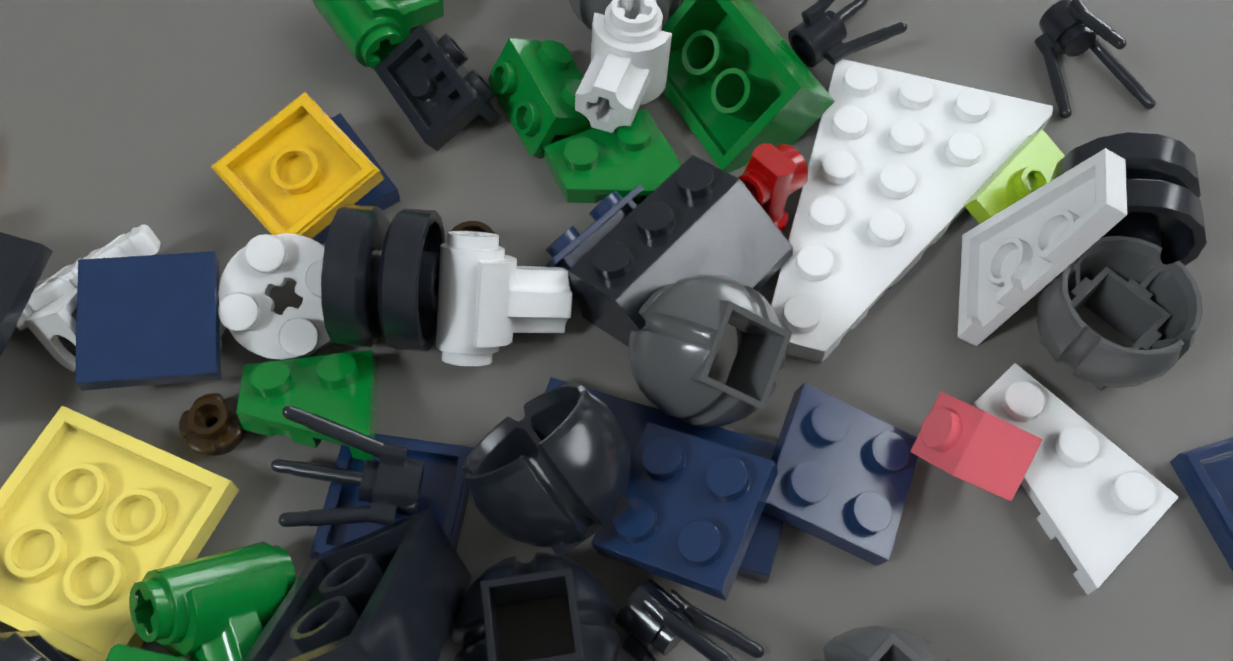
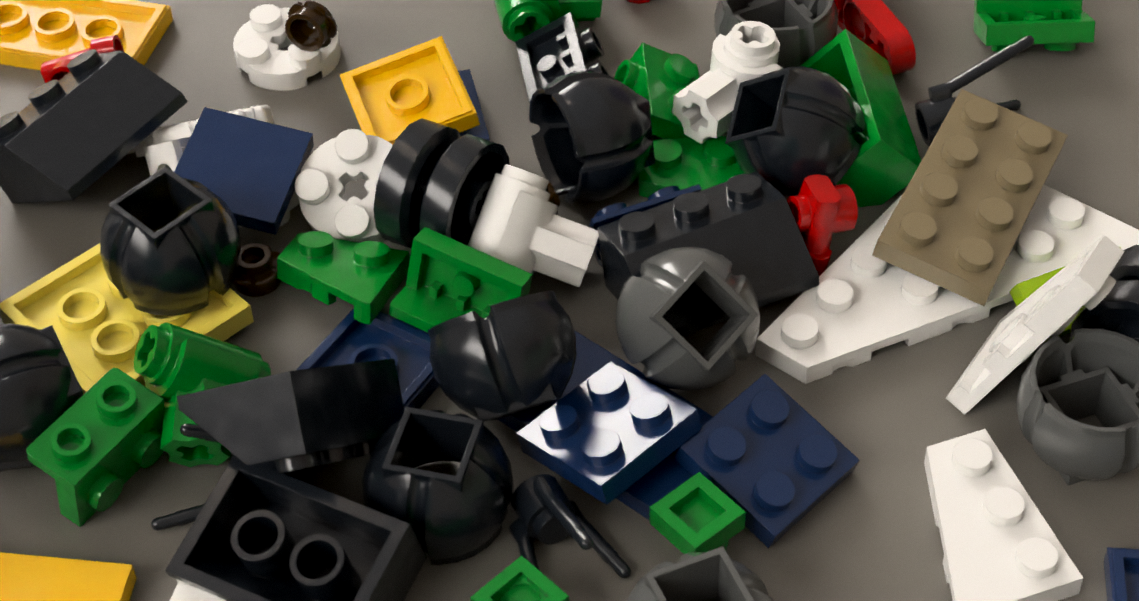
camera: 25 degrees right, 15 degrees down
(110, 122) = (269, 68): none -> white plate
(138, 471) = (170, 244): none -> black piece
(152, 116) = (310, 26): none -> dark brown plate
(388, 484) = (365, 336): black plant -> none
(453, 390) = (453, 280): none -> green bracket
(509, 162) = (591, 135): none -> black piece
(735, 95) = (794, 127): none -> black piece
(816, 576) = (697, 516): none -> green tile
(894, 120) = (970, 197): none -> dark tan plate
(976, 446) = (894, 463): coral brick -> none

